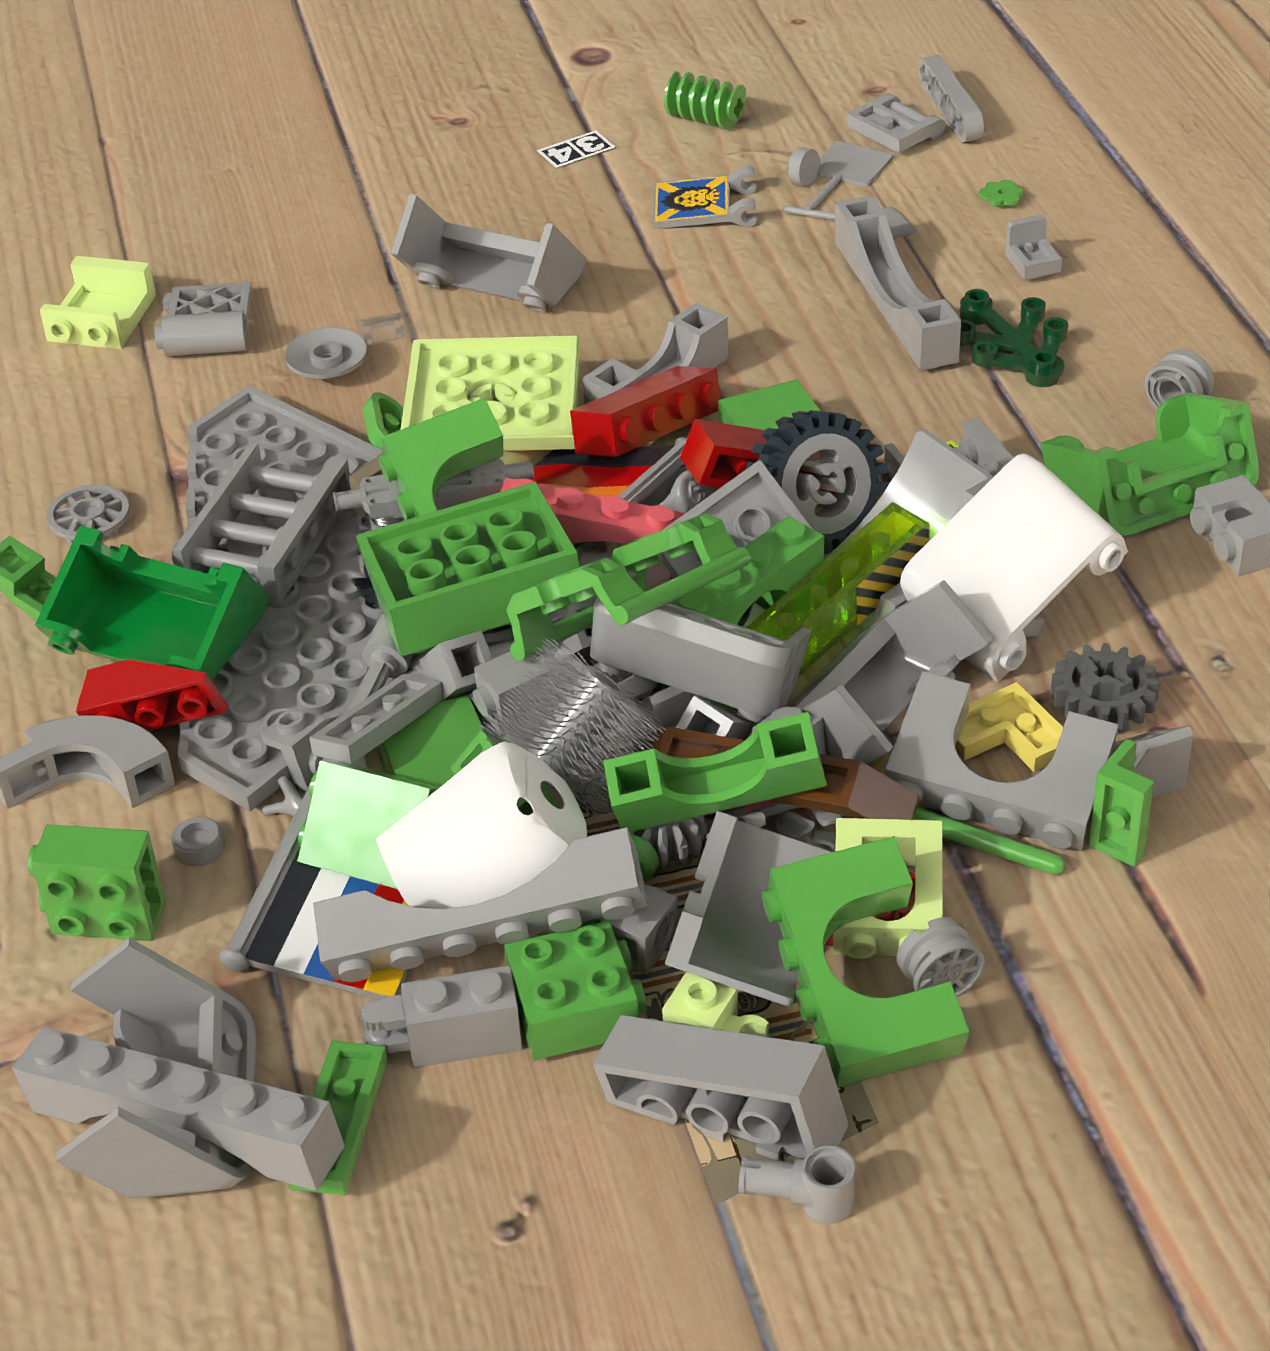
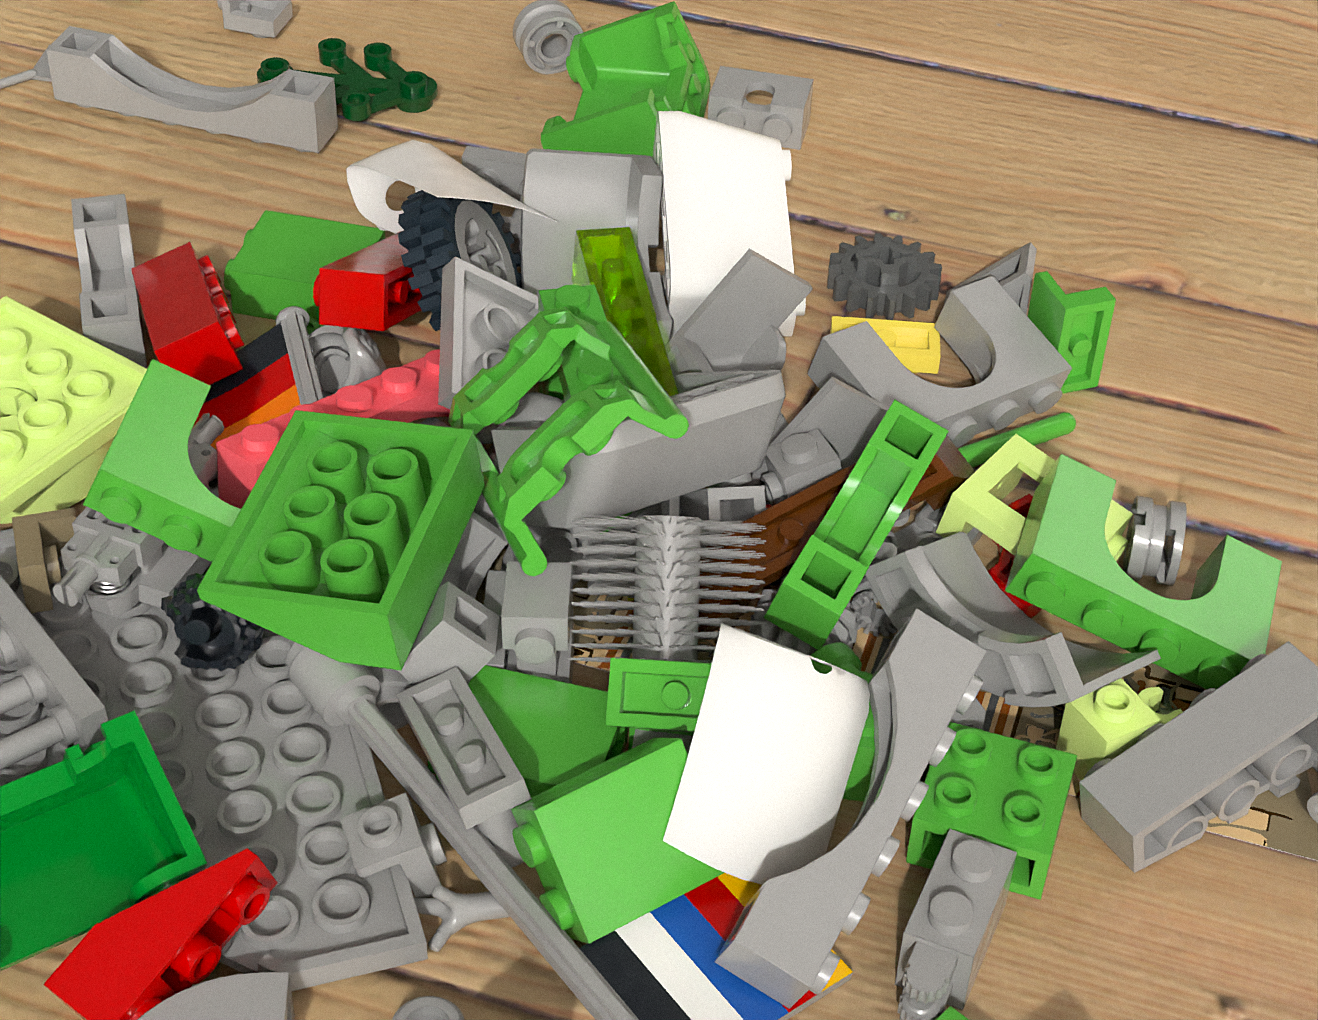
camera: 60 degrees left, 0 degrees up
(852, 419) = (420, 167): none -> white piece

